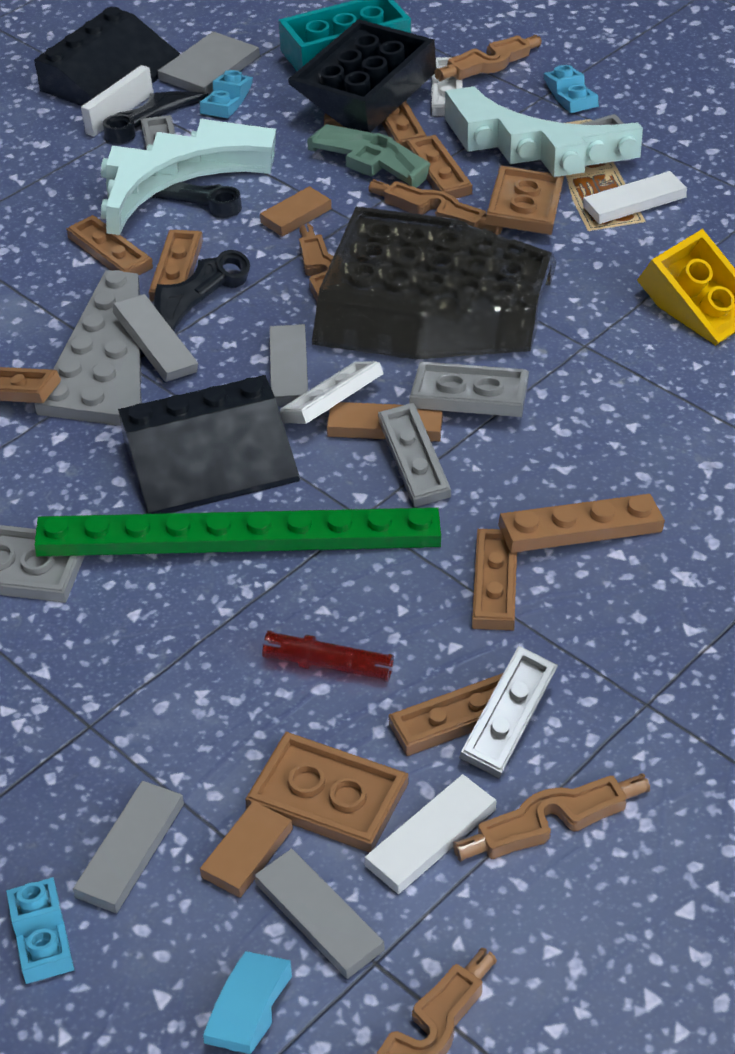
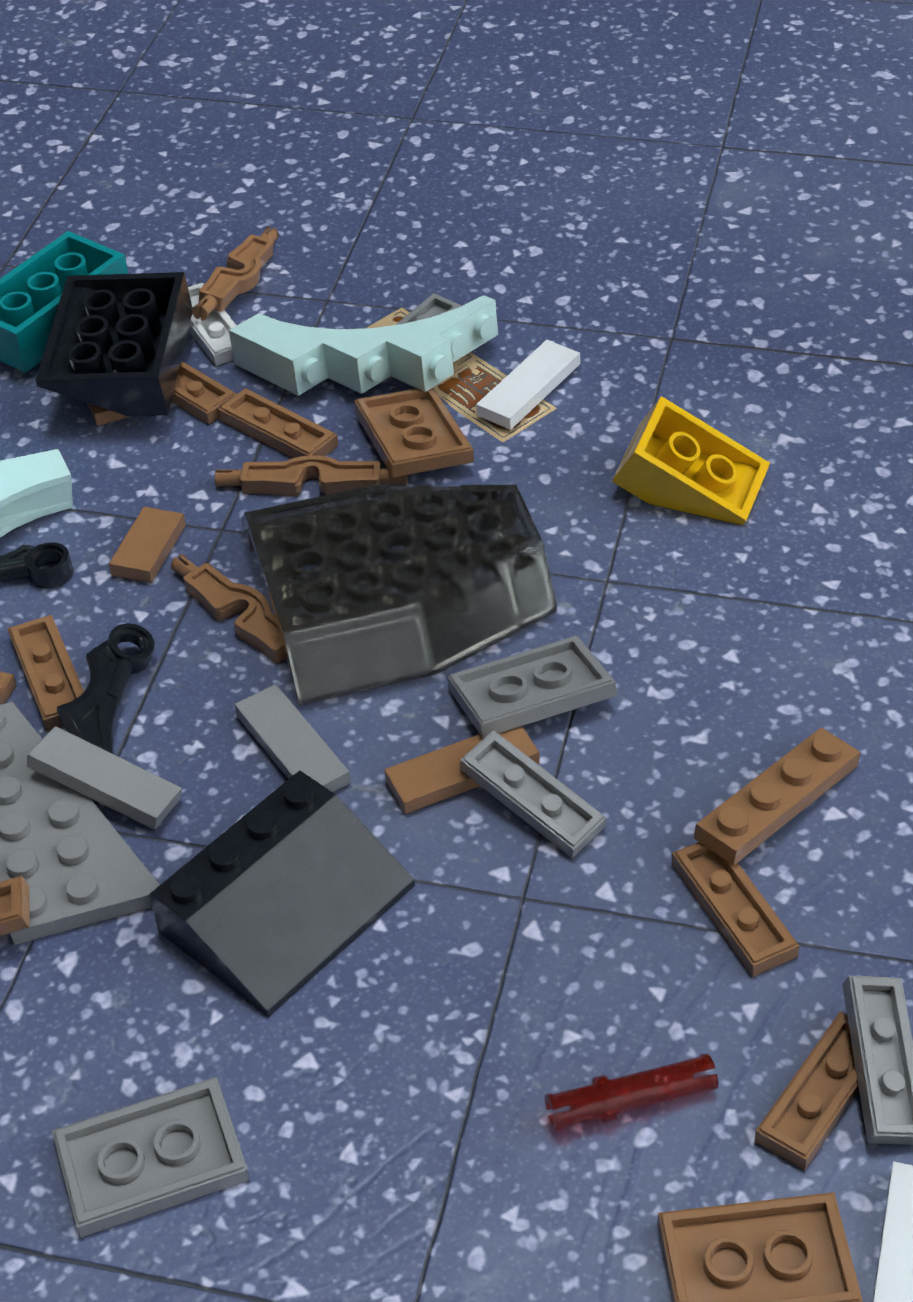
camera: 30 degrees left, 0 degrees up
(237, 531) = (390, 992): green plate -> none
(330, 392) = (379, 756): white tile -> none
(371, 152) = (189, 437): sand green plate -> none
(570, 89) = (352, 279): medium azure slope -> none

